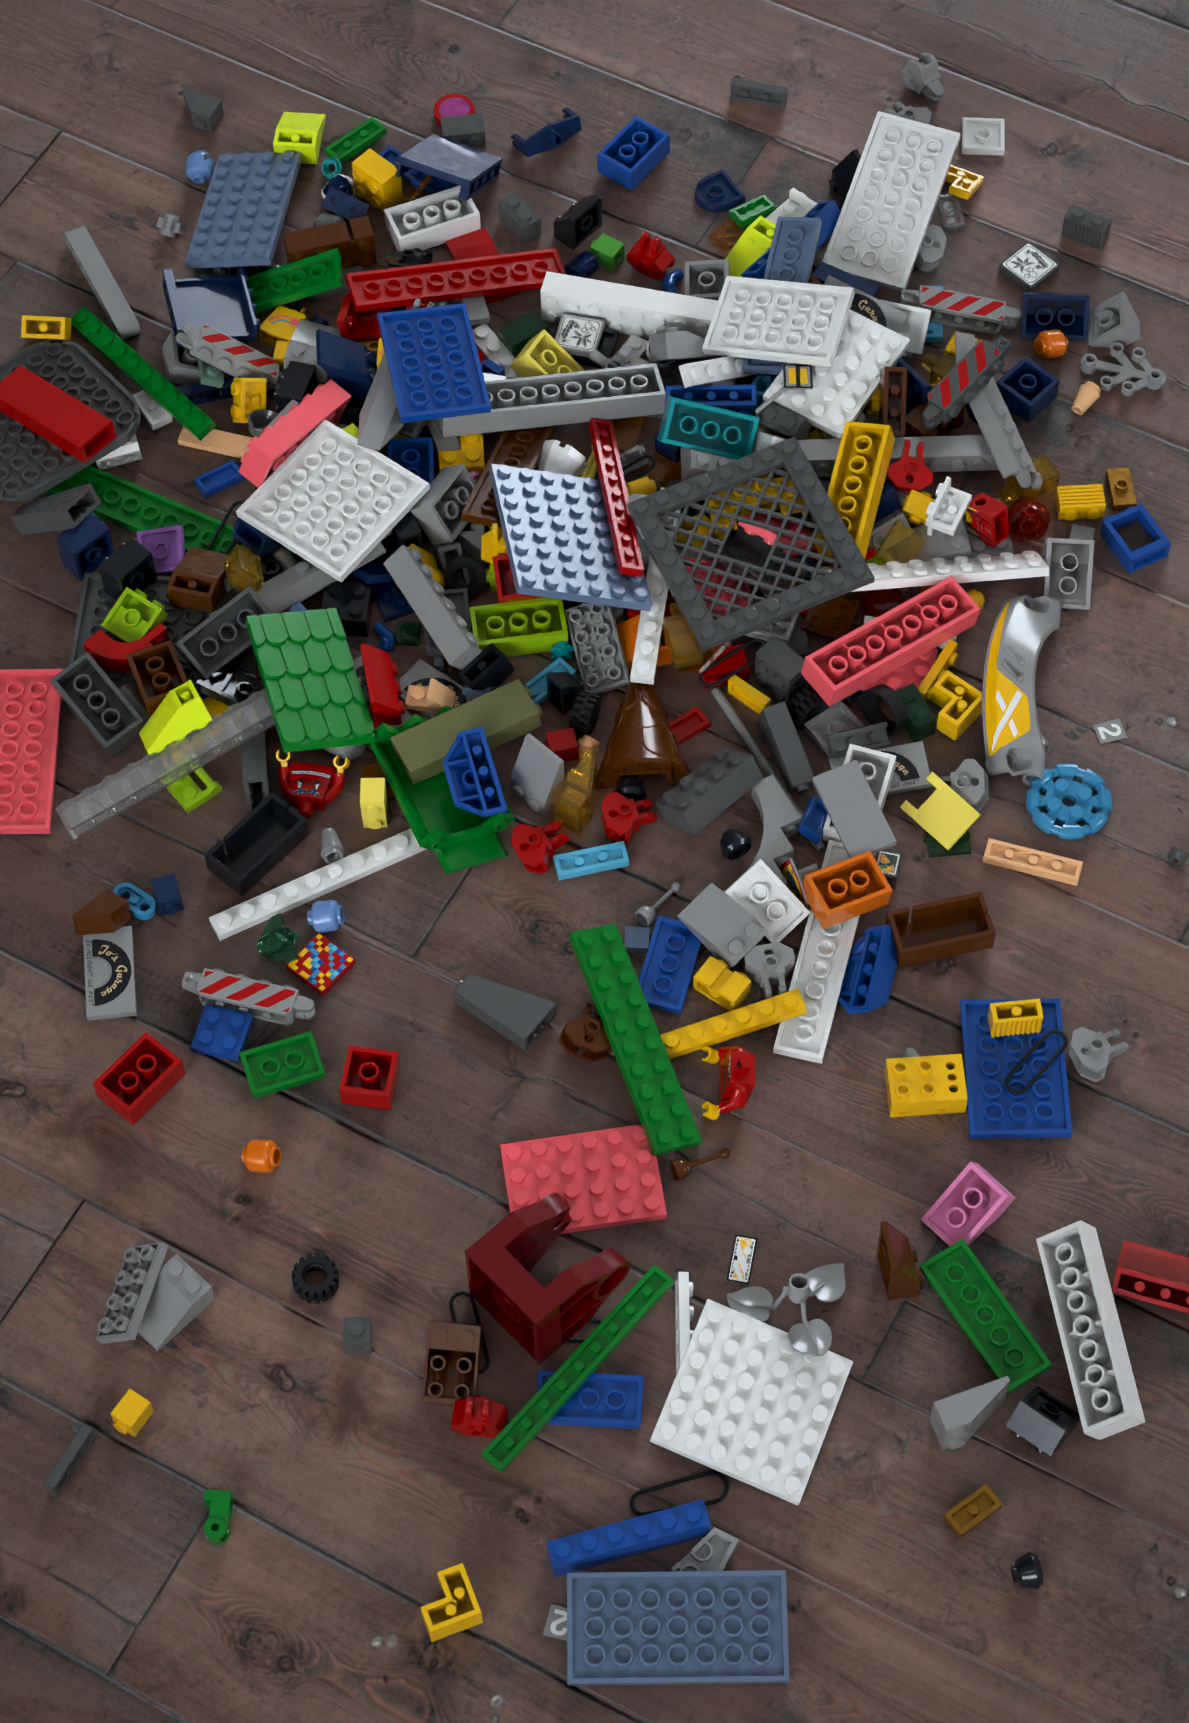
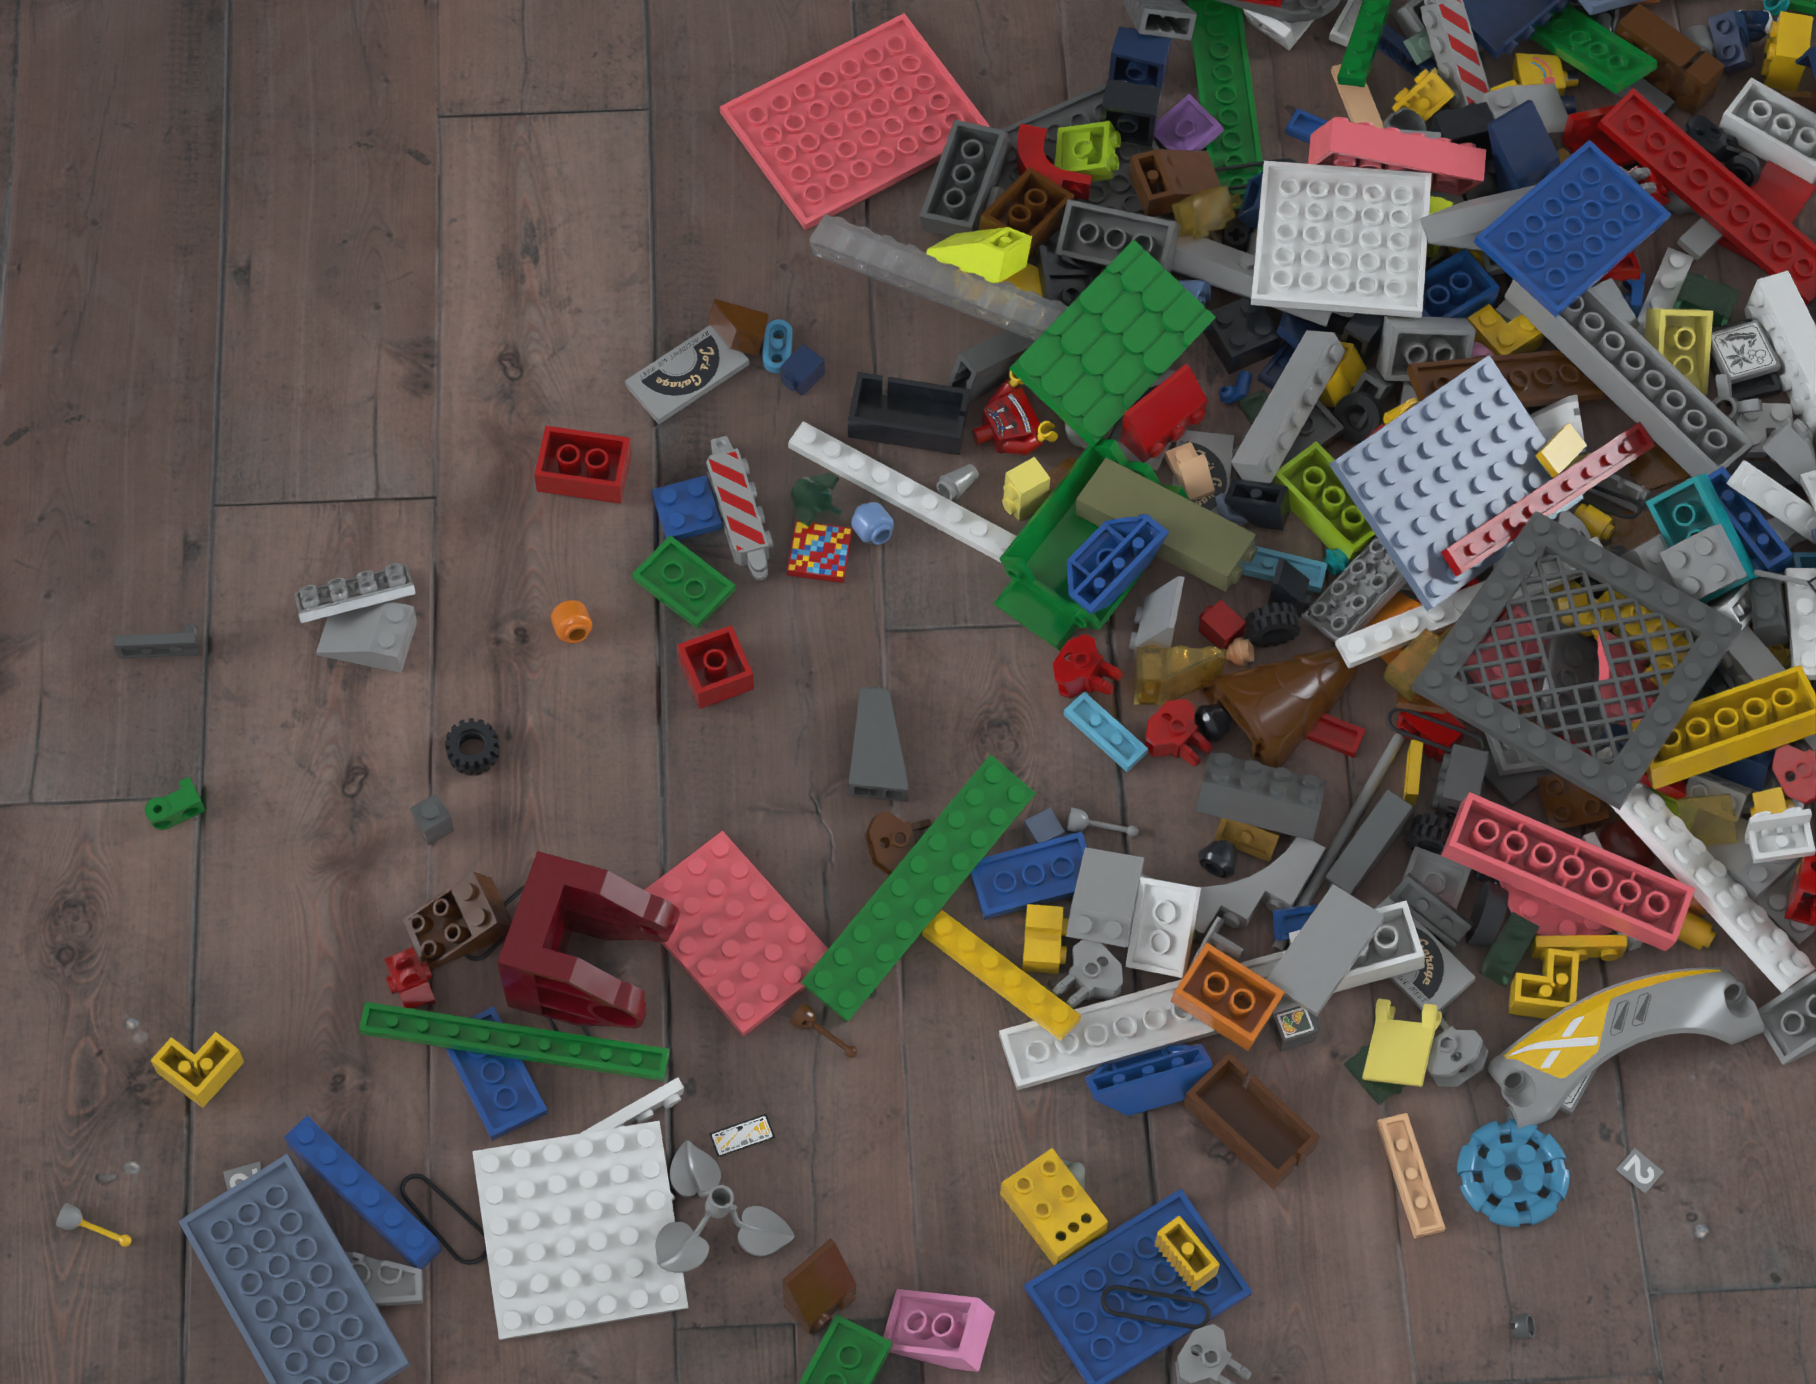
camera: 55 degrees right, 5 degrees up
(131, 1413) = (234, 668): yellow brick -> none
(189, 794) = (931, 322): lime plate -> none
(443, 253) = (1745, 167): none -> black cone
(583, 470) = (1560, 450): none -> tile
(731, 434) = (1703, 563): none -> light grey brick
(731, 818) = (1248, 838): none -> pearl gold plate
(735, 1079) = (936, 1011): red torso -> none

